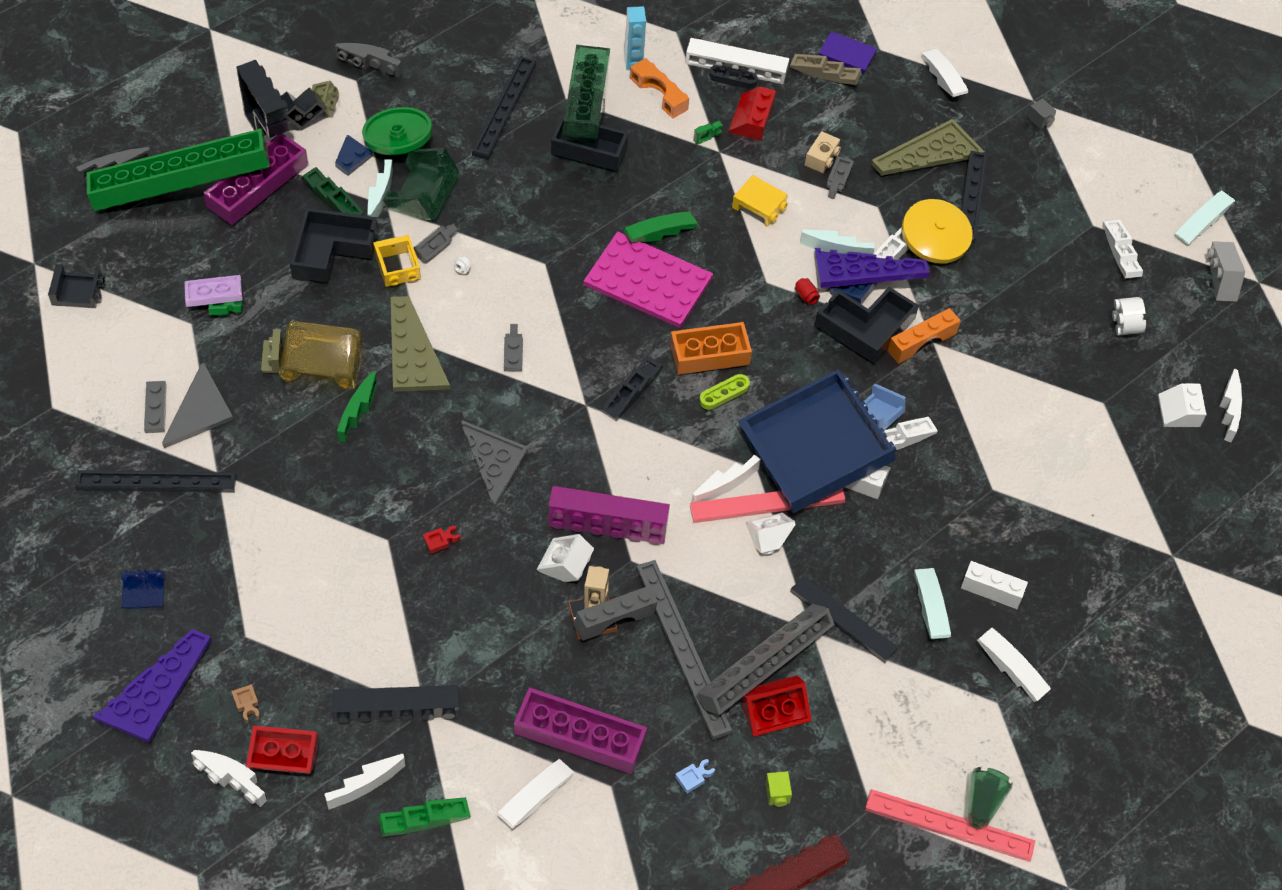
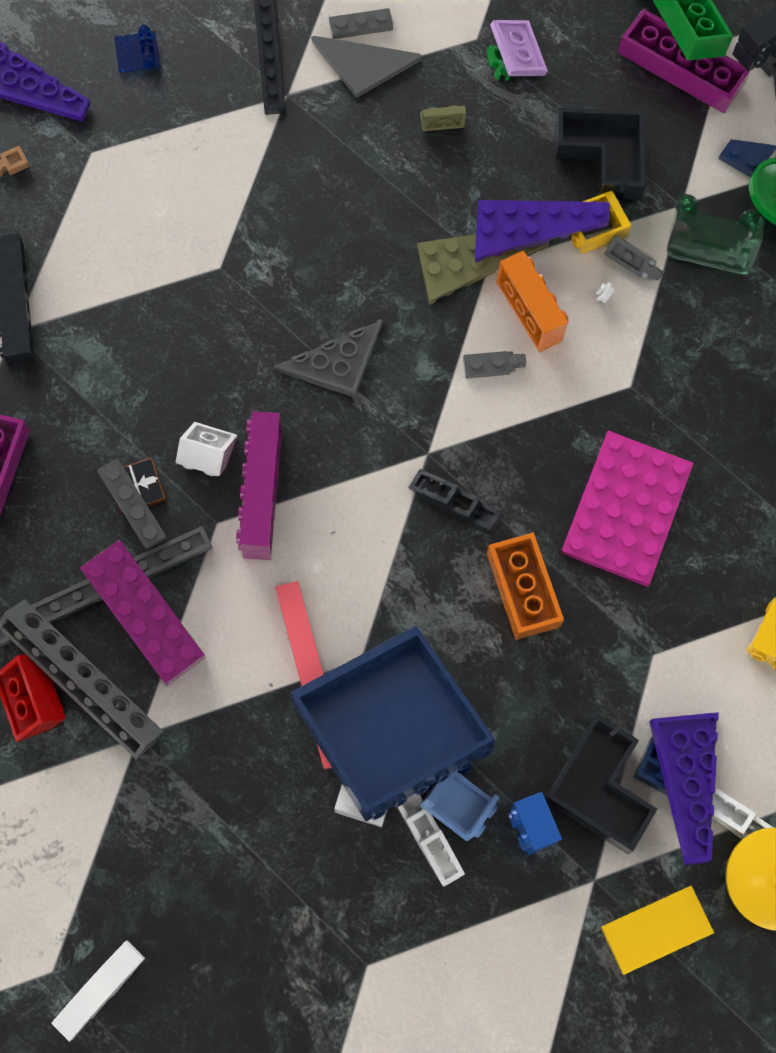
camera: 85 degrees right, 15 degrees up
(321, 351) = (443, 164): clear yellow windscreen -> none
(330, 193) = (681, 144): dark green slope -> none
(358, 404) = (393, 212): green slope -> none
(377, 193) = (705, 192): light aqua slope -> none
(394, 308) = (525, 224): none -> dark purple wing
(438, 540) = (220, 315): red plate -> none
(467, 310) = (532, 301): none -> orange brick
(596, 586) = (155, 478): tan brick -> none
(657, 227) = (710, 513): green slope -> none
(712, 609) = (143, 612): none -> magenta brick
(722, 483) = (327, 613): white slope -> none
(729, 387) = (463, 600): lime plate -> none
(770, 532) = (265, 675): white slope -> none
(807, 291) = (642, 705): red brick -> none
(830, 240) = (730, 733): light aqua slope -> none
(845, 620) = (153, 774): black tile -> none
(895, 363) = (534, 824): none -> blue brick
(909, 341) = (606, 877): orange arch -> none
(932, 603) = (179, 883): light aqua slope -> none
(970, 307) = (657, 930): none -> yellow tile
(994, 585) = (211, 964): white brick -> none

